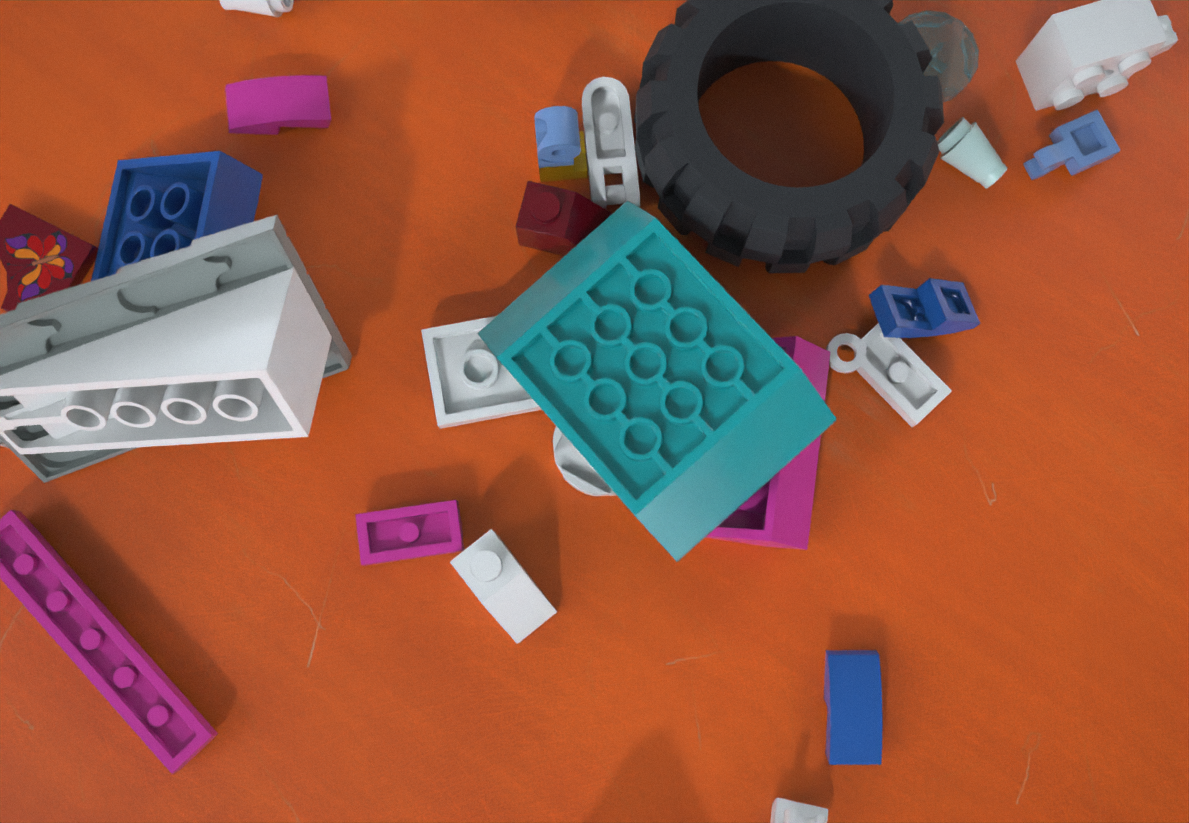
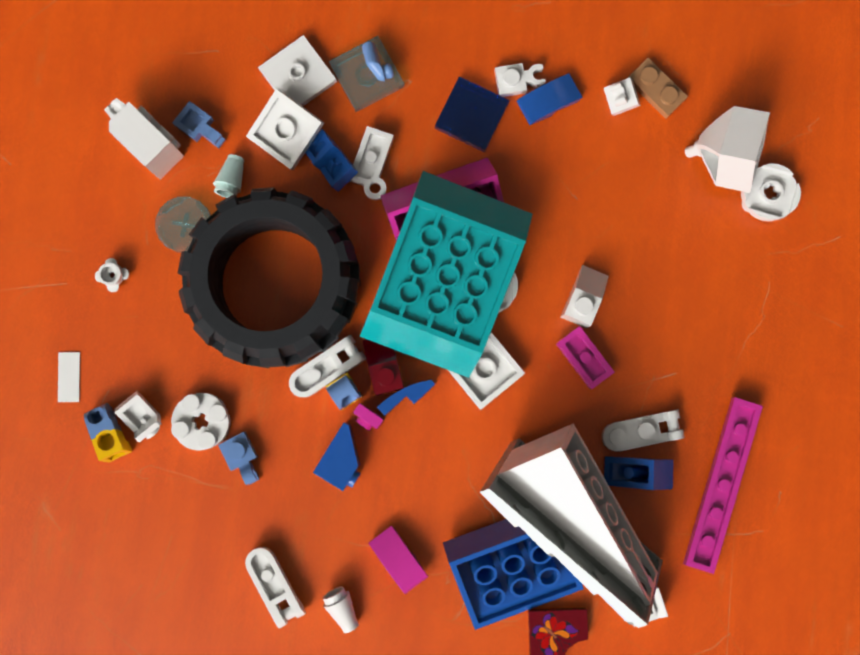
camera: 115 degrees left, 5 degrees up
(186, 517) = (639, 473): none -> blue slope
(249, 561) = (642, 431): none -> white plate
(464, 95) = (340, 460): none -> blue slope
(503, 241) = (413, 392): none -> blue slope
(504, 165) = (367, 417): none -> dark pink plate
(890, 569) = (471, 114): none -> clear blue tile
(915, 667) = (513, 79): none -> white plate
(1007, 266) = (285, 129): none -> white plate
(1036, 439) = (358, 80): none -> clear light blue tile
(1052, 450) = (372, 60): none -> medium blue arm
(1085, 333) = (298, 72): none -> white plate

